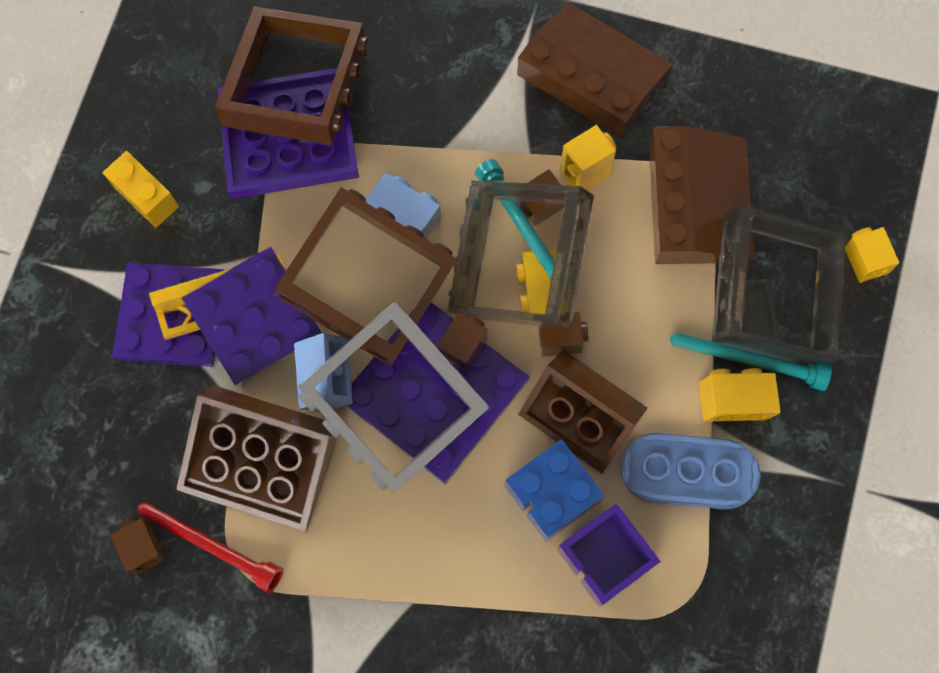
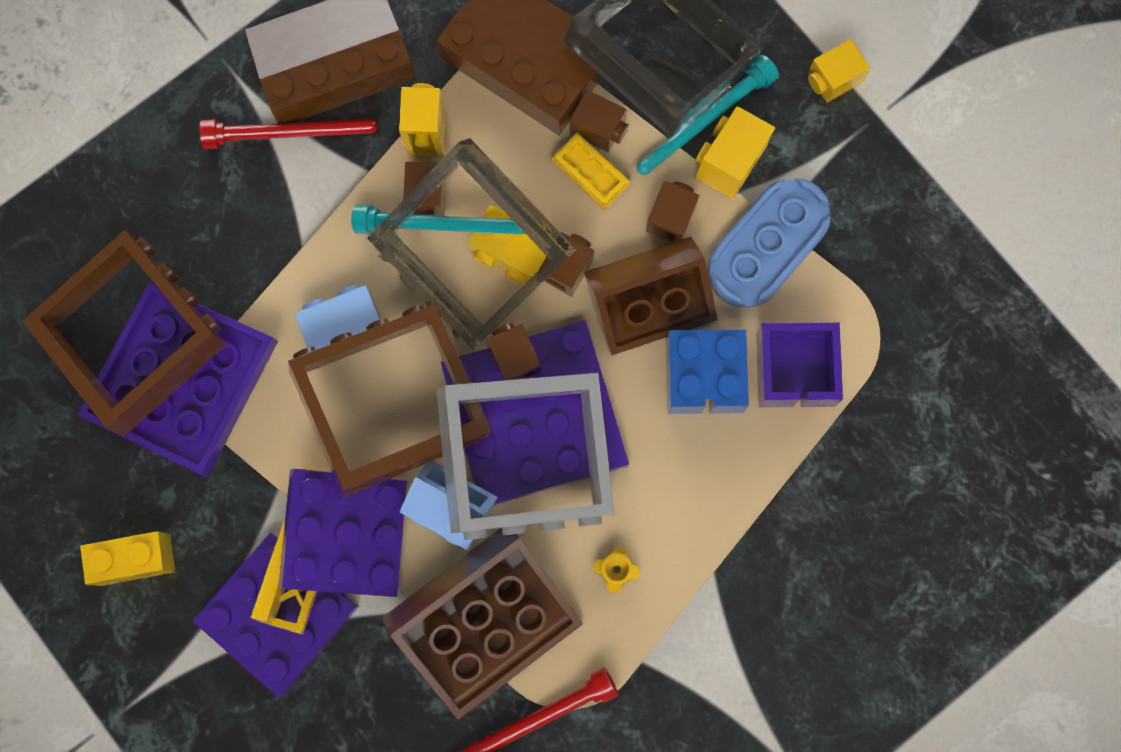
camera: 55 degrees left, 5 degrees up
(363, 537) = (615, 580): none -> yellow plate
(477, 35) = (216, 134): none -> red piece
(643, 303) = (591, 171): none -> yellow plate
(658, 382) = (672, 211): none -> reddish brown brick
(685, 282) = (599, 121): none -> reddish brown brick
(864, 431) = (838, 71): none -> yellow brick

